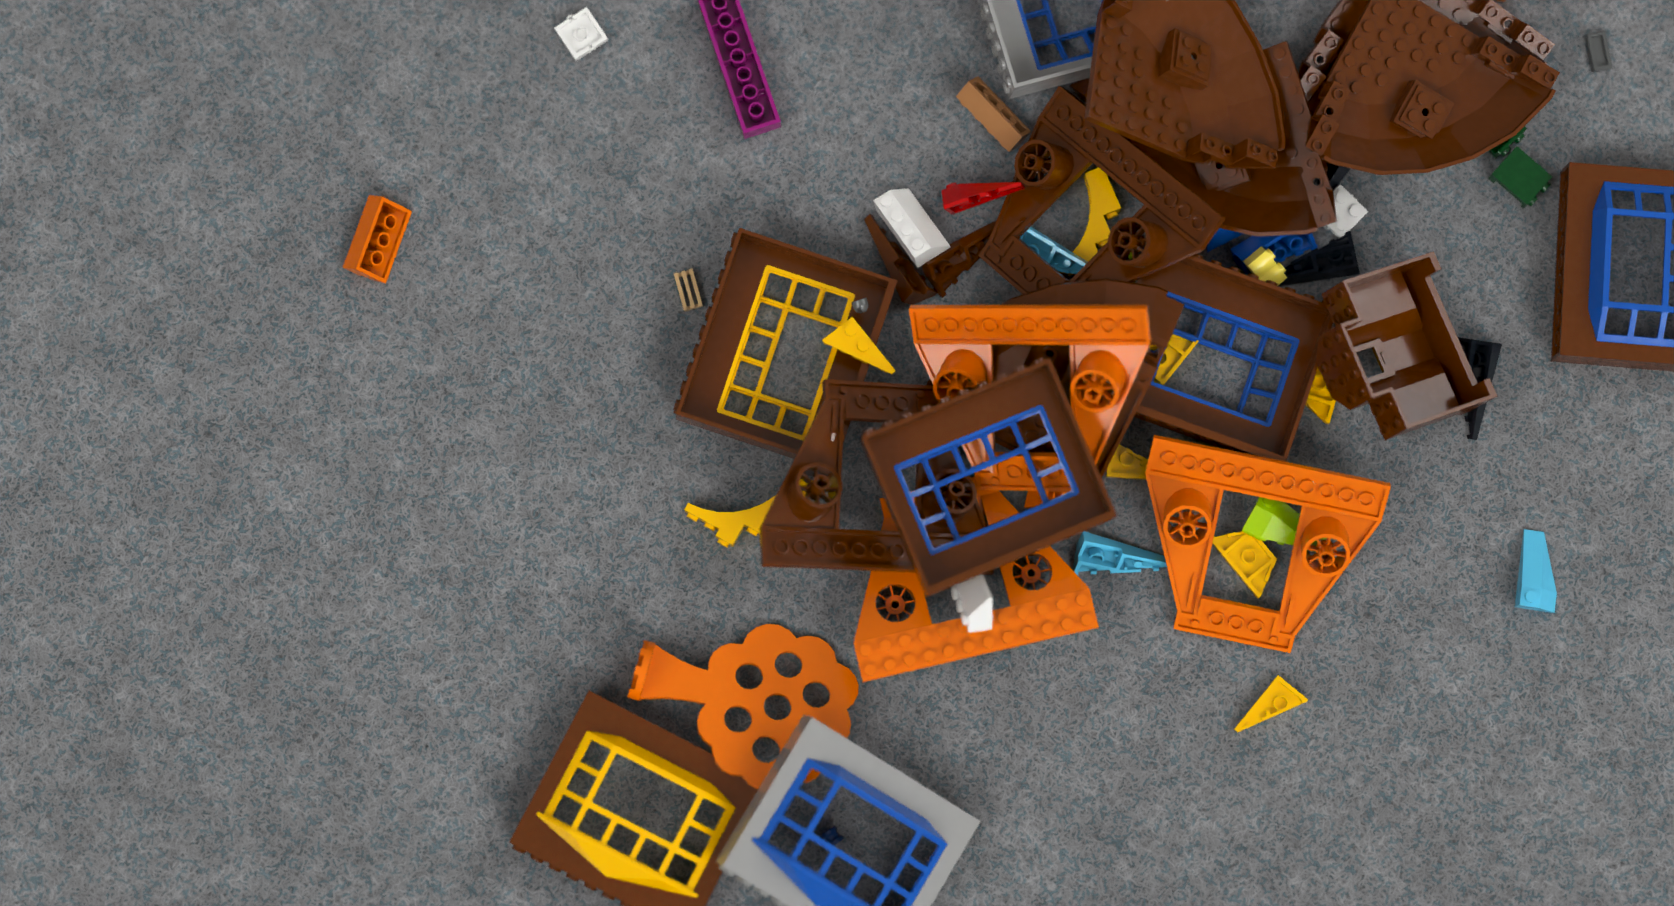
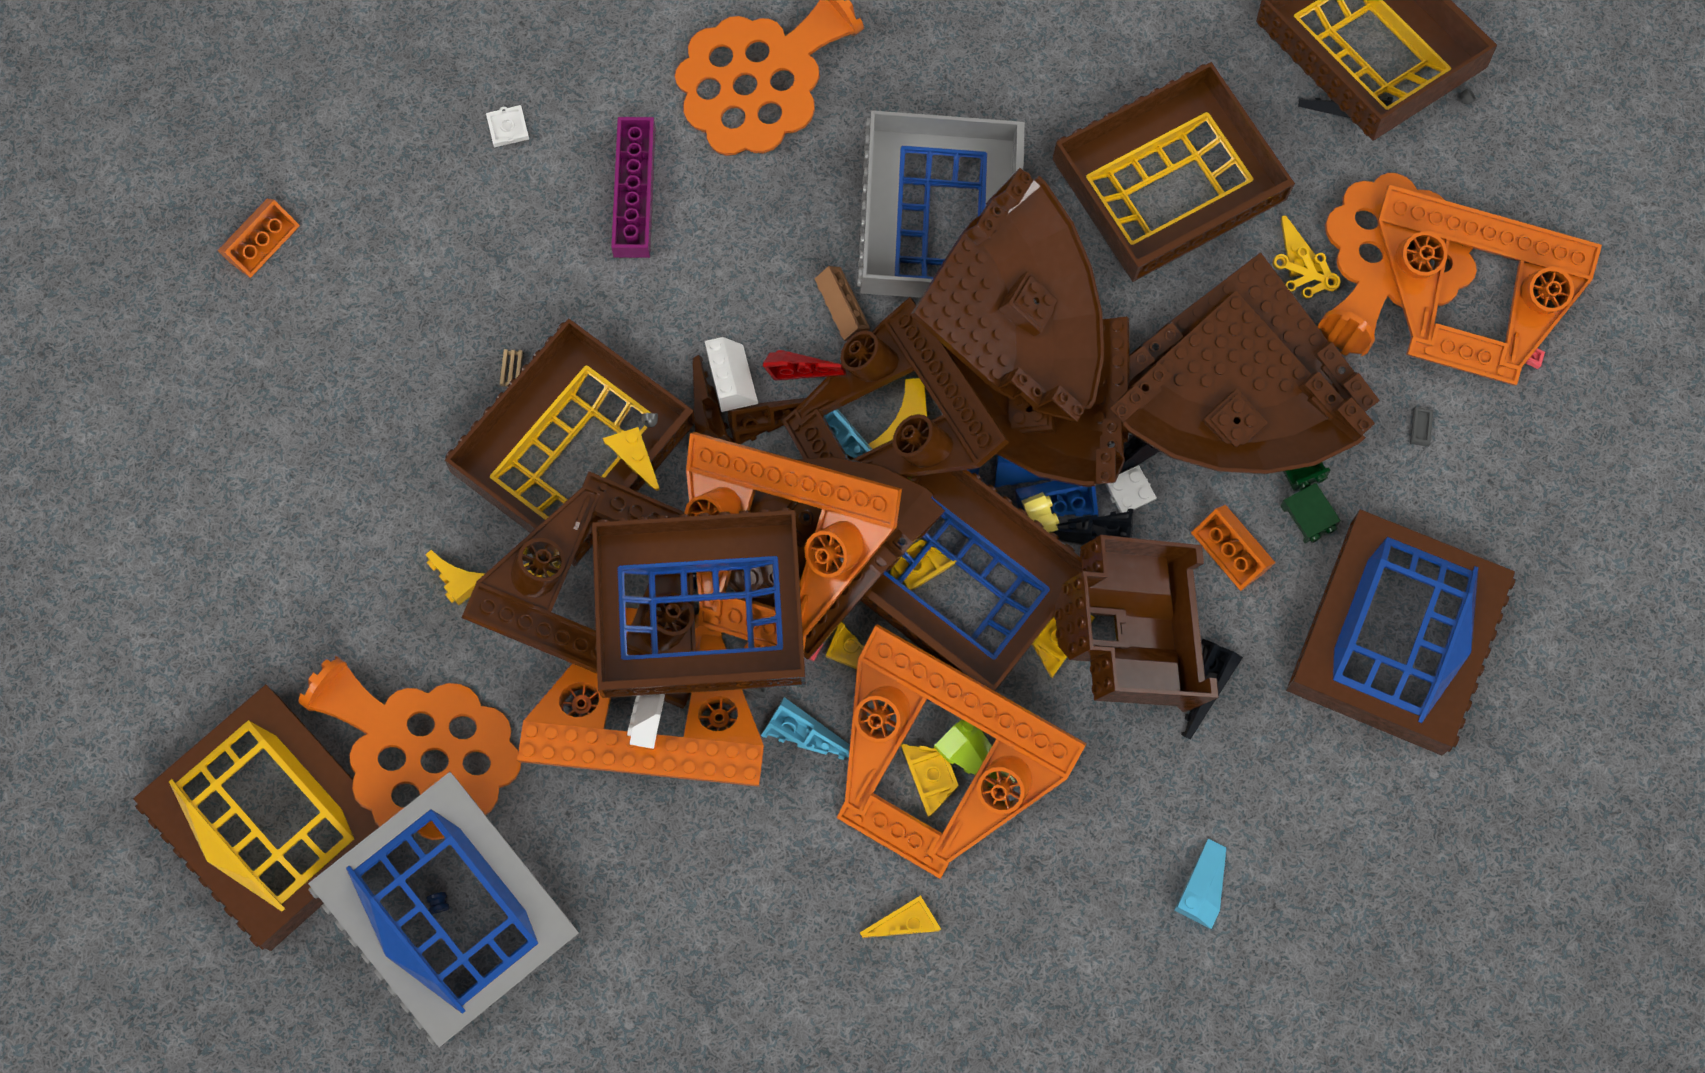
camera: 20 degrees right, 10 degrees down
(1457, 237) = (1233, 547): none -> orange slope

